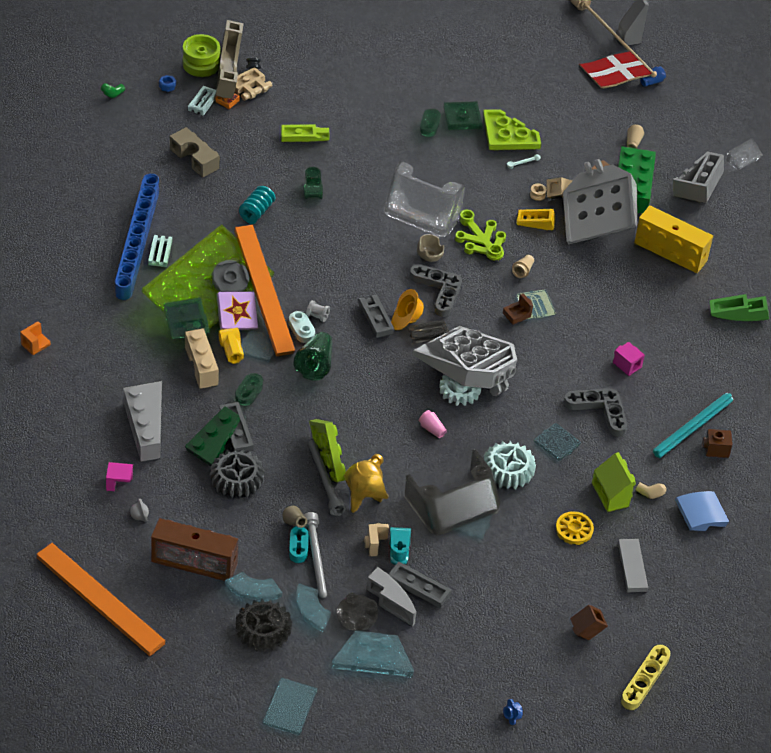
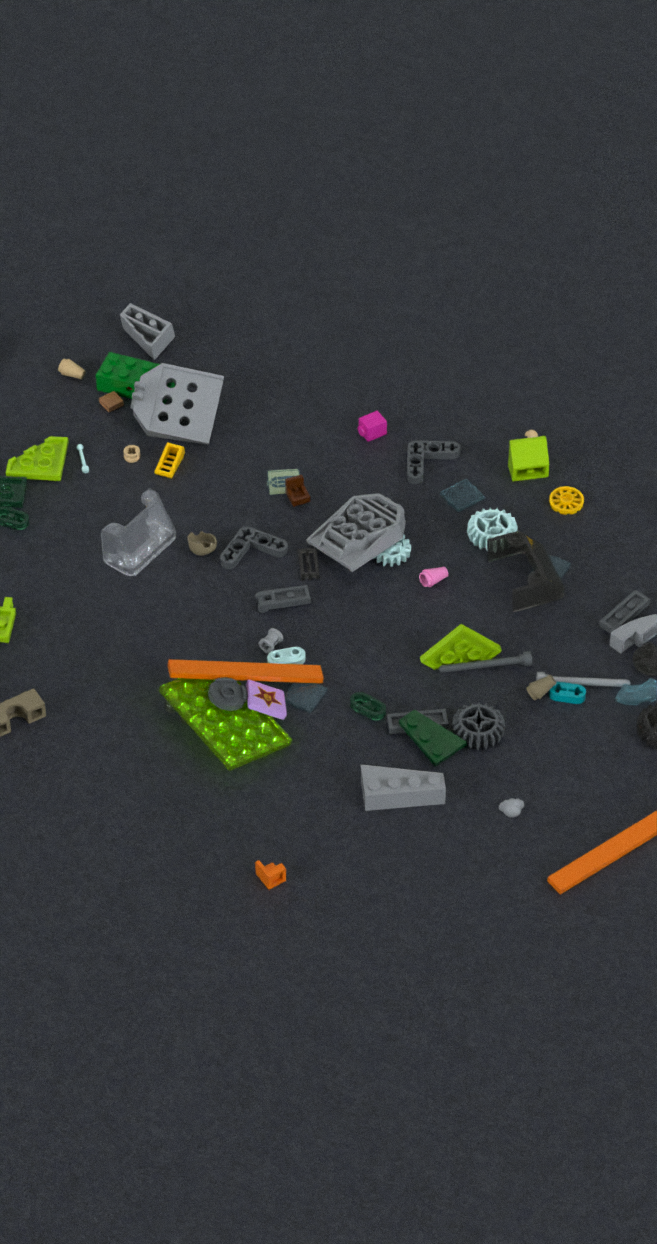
camera: 75 degrees left, 0 degrees up
(118, 472) = (471, 816): dark pink panel -> none
(137, 237) = (134, 773): blue beam -> none
(162, 241) = (156, 757): light aqua tile -> none
(185, 316) = (273, 739): clear green slope -> none
(194, 549) = (577, 761): reddish brown brick -> none
(202, 356) = (309, 735): tan arch -> none
(231, 342) = (299, 713): yellow piece -> none
(256, 204) = (109, 670): teal piece -> none
(257, 589) = (616, 732): clear light blue tile -> none
(313, 184) = (85, 622): clear green piece -> none
(315, 357) = (336, 645): clear green cone -> none
(366, 481) = (514, 624): pearl gold piece -> none
(375, 533) = (569, 636): tan bracket -> none
(399, 544) = (576, 617): teal piece -> none
(408, 309) = (285, 570): light orange piece -> none
(492, 251) = (207, 499): lime plant -> none
(522, 267) = (238, 480): tan cone -> none
(556, 187) = (134, 435): tan panel -> none
(632, 565) = (613, 469): light grey tile -> none
(673, 239) = (235, 358): yellow brick -> none
(692, 425) = (457, 400): teal axle -> none
(702, 510) = (559, 412): medium blue slope -> none
(718, 443) = (484, 386): reddish brown brick -> none
(740, 308) = (320, 339): bright green slope -> none
(744, 154) = (112, 298): clear slope -> none

